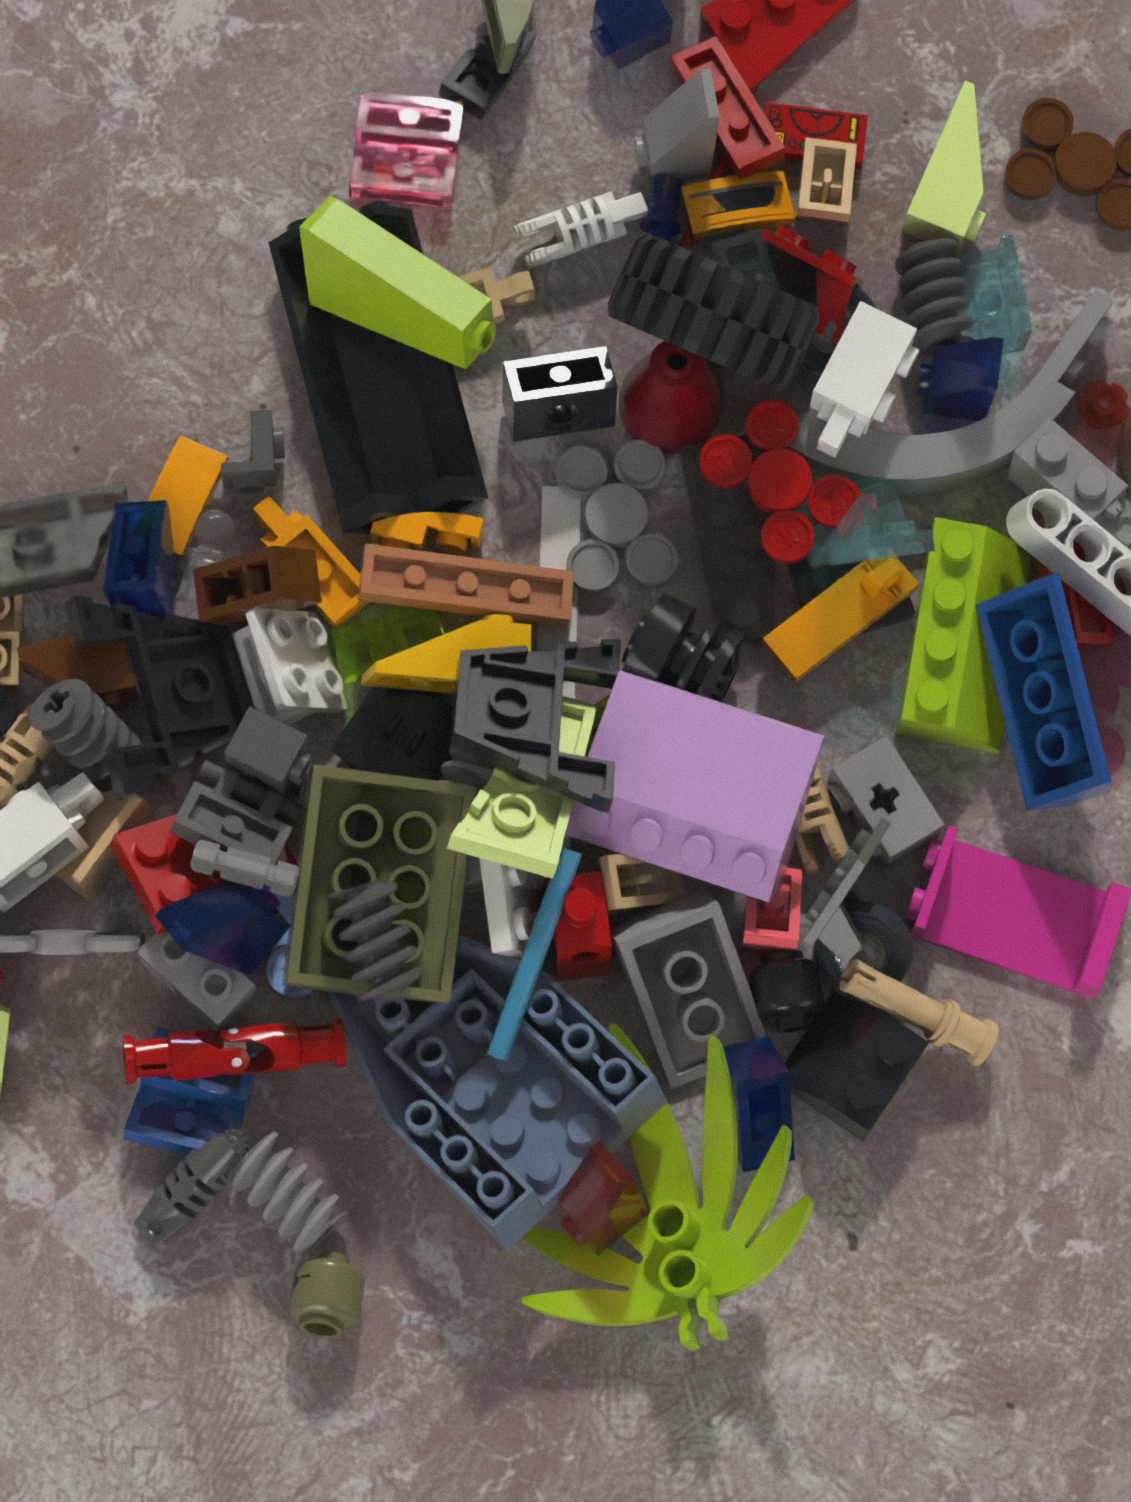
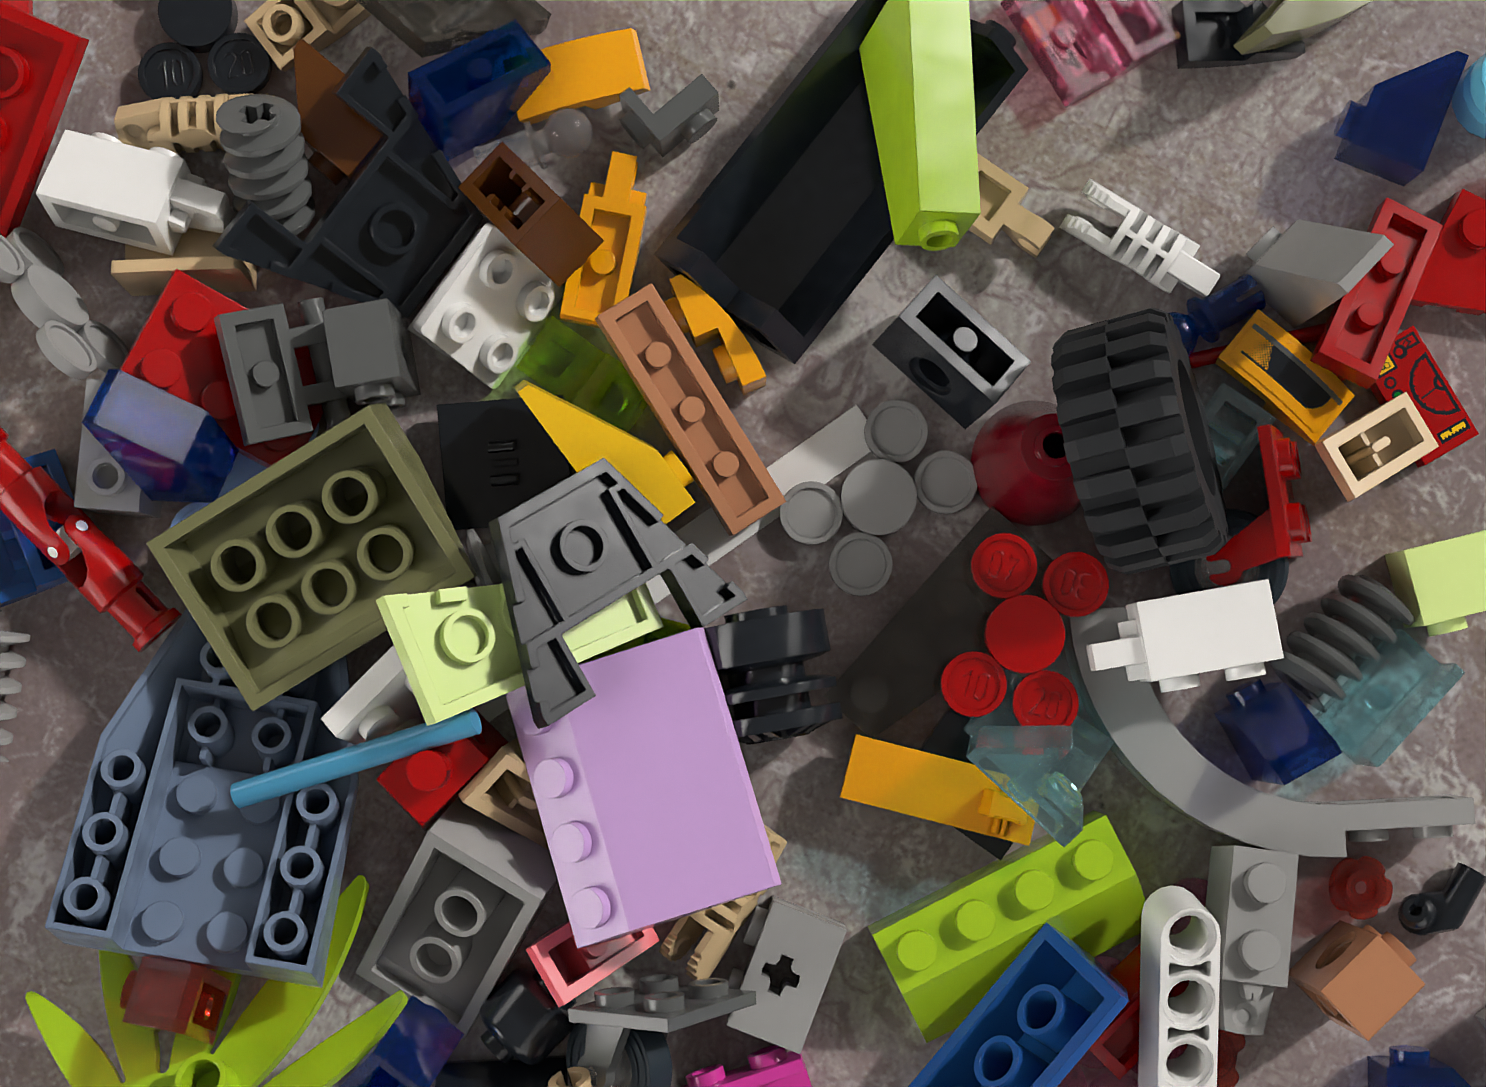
camera: 60 degrees right, 10 degrees up
(245, 868) = (224, 417): light grey axle -> none
(376, 938) = (243, 601): dark grey piece -> none

